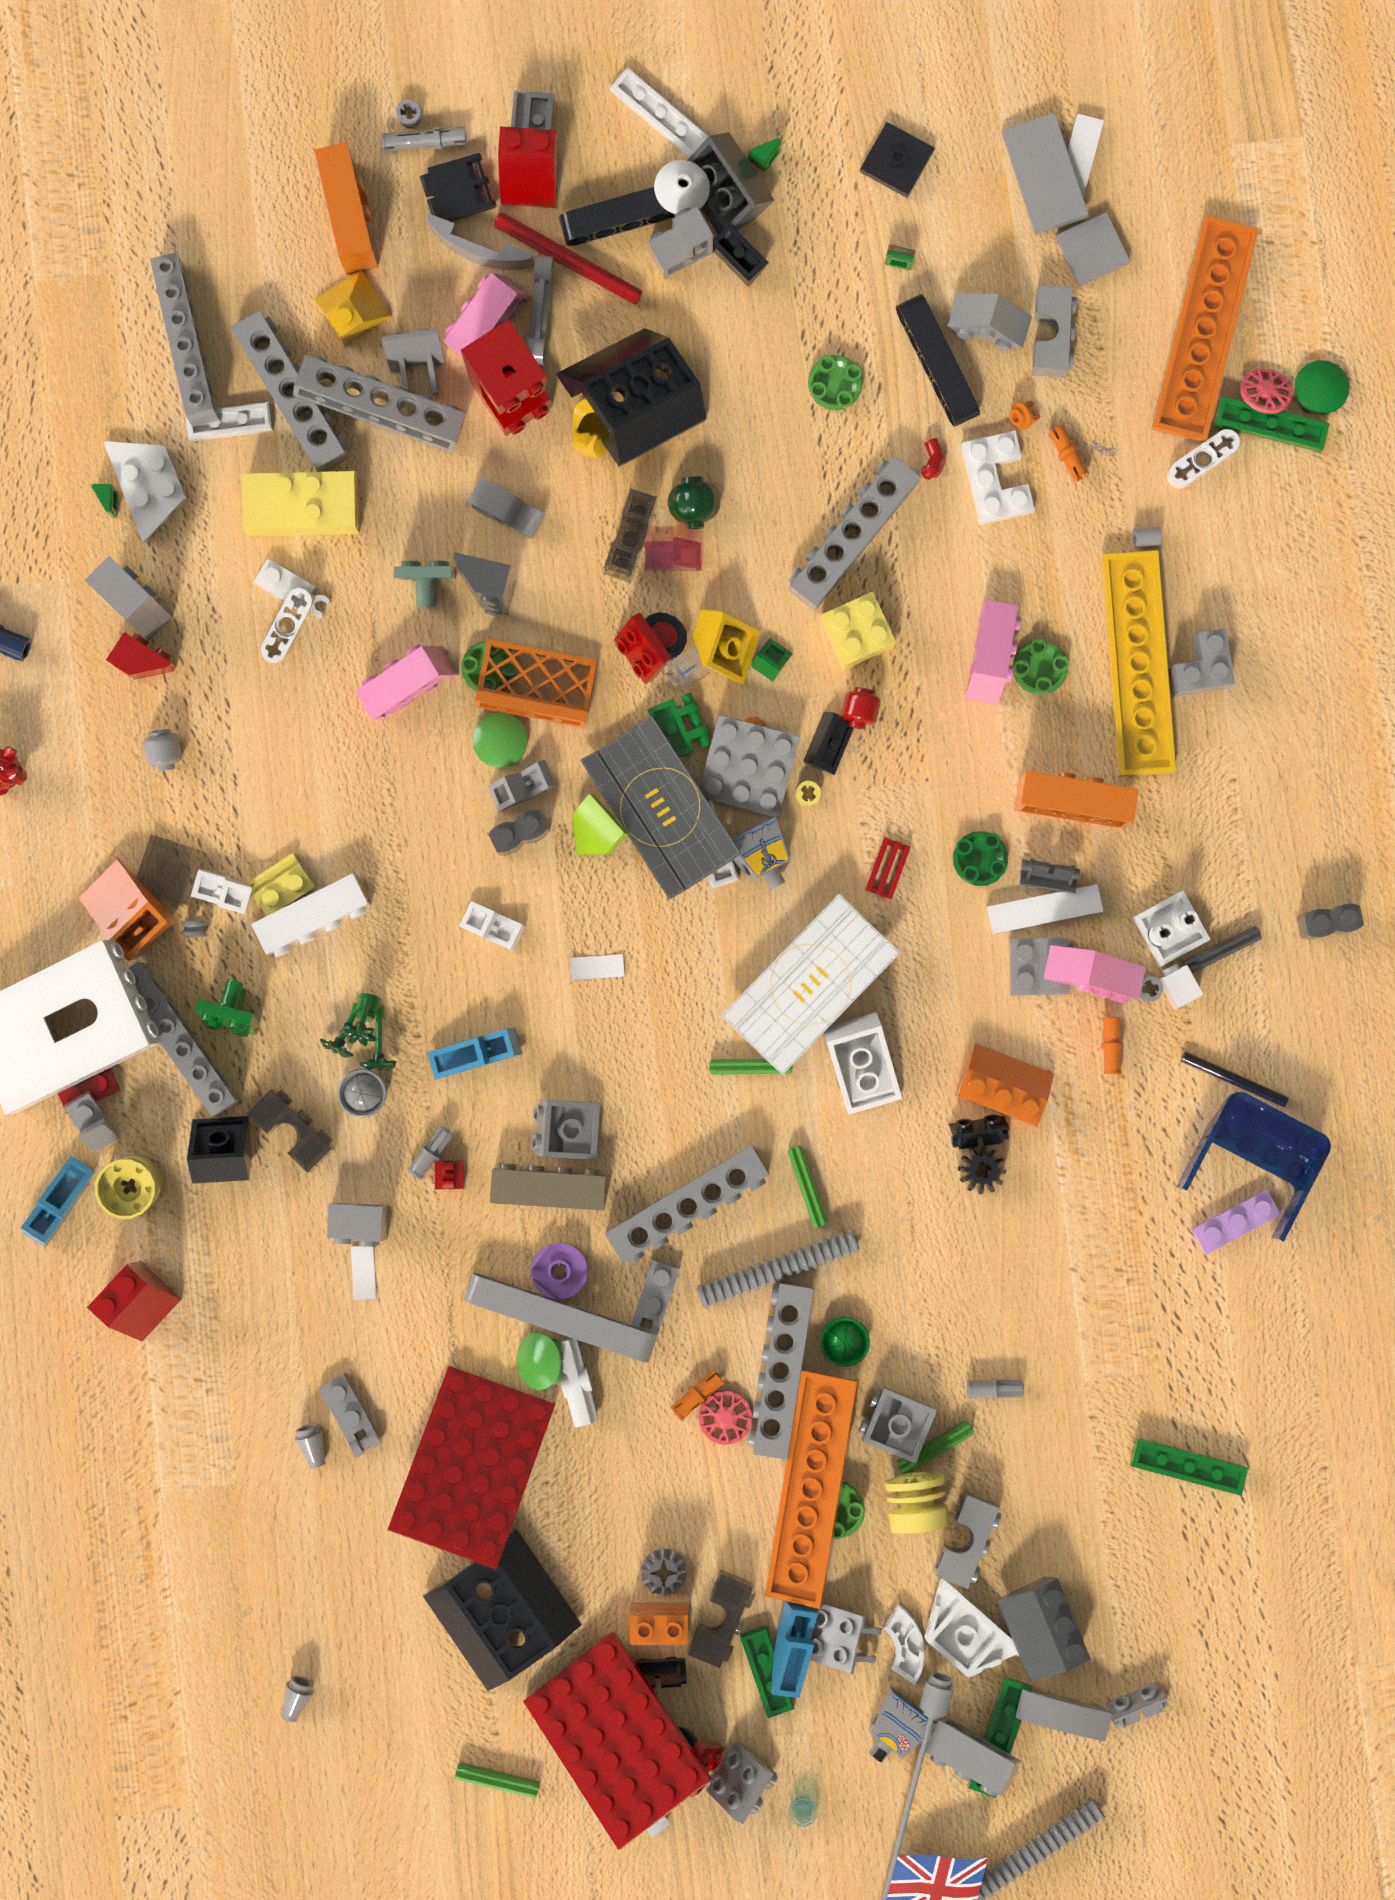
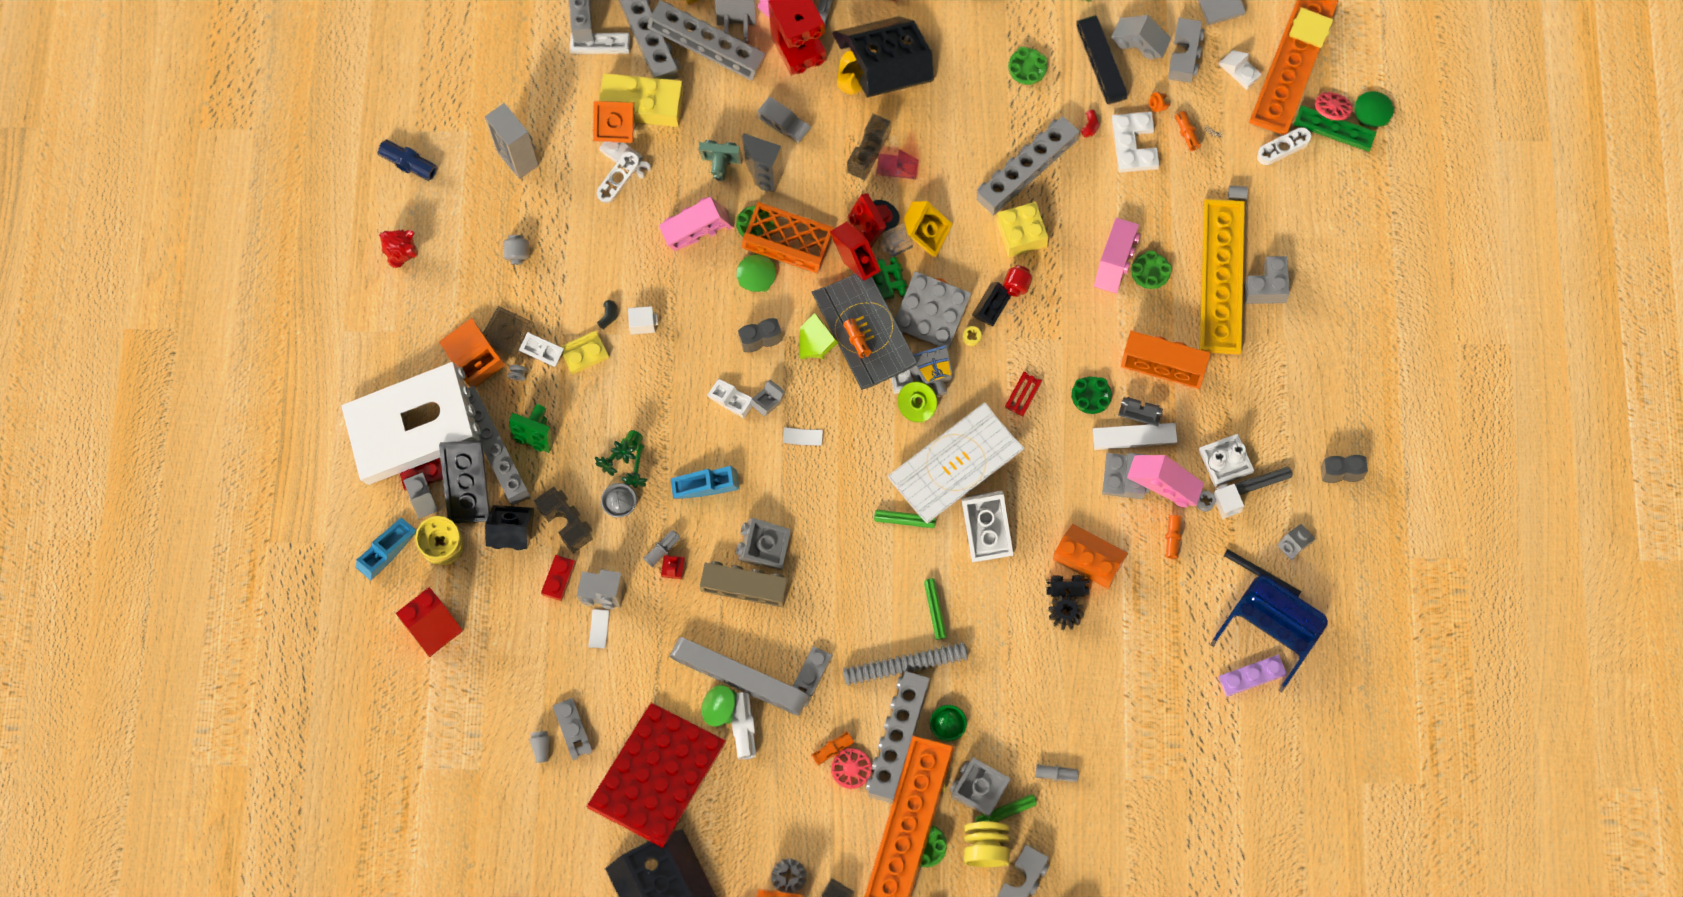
camera: 15 degrees right, 15 degrees down
(108, 497) = (507, 80): green slope -> none
(138, 660) = (509, 188): red slope -> none
(147, 483) = (536, 76): white wing -> none
(148, 1101) = (464, 481): none -> plate
(267, 546) = (613, 121): none -> orange plate
(297, 1210) = (558, 577): none -> red plate
(308, 825) = (610, 314): none -> pearl dark grey arm
(311, 915) = (602, 373): white brick -> none
(353, 831) = (642, 320): none -> white brick
(521, 786) = (763, 307): light grey slope -> none
(542, 922) = (768, 398): none -> light grey bracket
(543, 1273) = (743, 632): medium lavender plate -> none
(621, 1237) = (891, 582): light grey brick -> none
(633, 699) = (855, 251): none -> red brick
(653, 826) = (857, 338): none -> orange pin
(694, 502) = (917, 131): dark green plant -> none
(741, 909) = (911, 408): none -> lime dish
(771, 659) = (957, 243): green slope -> none
(1129, 347) = (1240, 69): none -> white slope
(1188, 1466) = (1197, 850): green plate -> none
(1224, 276) = (1311, 27): none -> light yellow piece
(1276, 1030) = (1296, 541): none -> light grey bracket

